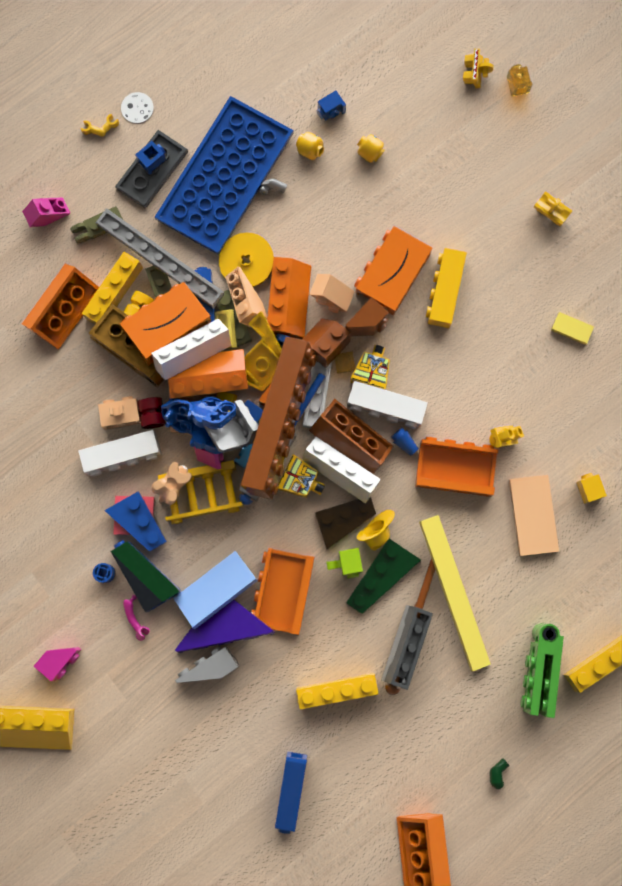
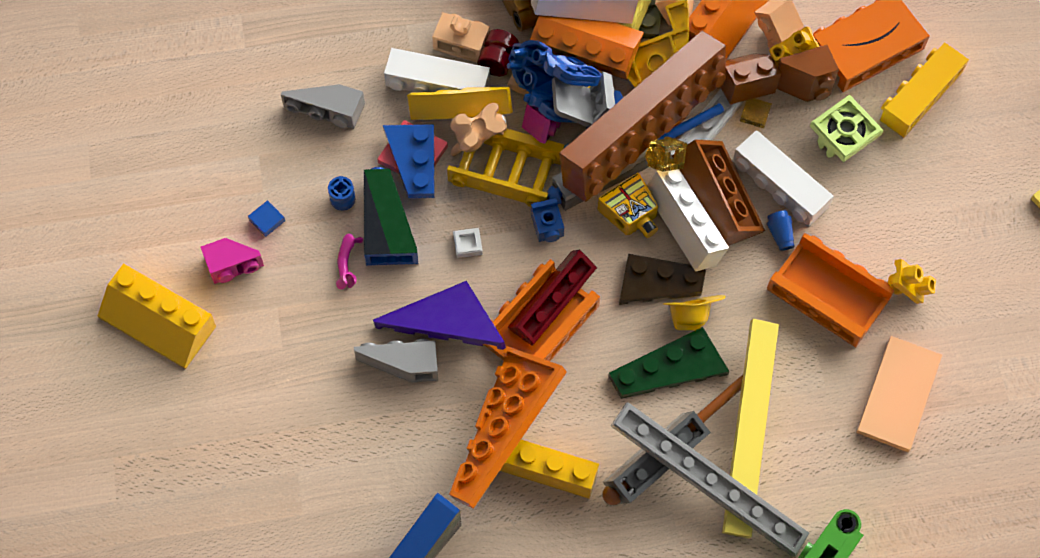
camera: 25 degrees right, 15 degrees down
(62, 509) = (331, 103): none -> light grey slope
(63, 616) = (266, 218): none -> blue tile
(150, 467) = (450, 103): none -> yellow slope
(206, 560) = (467, 243): none -> white tile
(215, 589) = (460, 276): light blue tile -> none
(247, 511) = (543, 212): none -> blue brick
(282, 571) = (552, 297): none -> dark red slope
(301, 678) = (507, 413): none -> orange wing
(306, 435) = (659, 154): none -> clear yellow brick
(349, 307) = (798, 42): none -> yellow hips
(349, 562) = (637, 323): lime brick -> none
(372, 368) = (786, 129): torso -> none
(411, 348) = (845, 129): none -> yellowish green piece
(447, 645) = (710, 479): none -> light grey tile
(591, 488) = (990, 396): yellow brick -> none

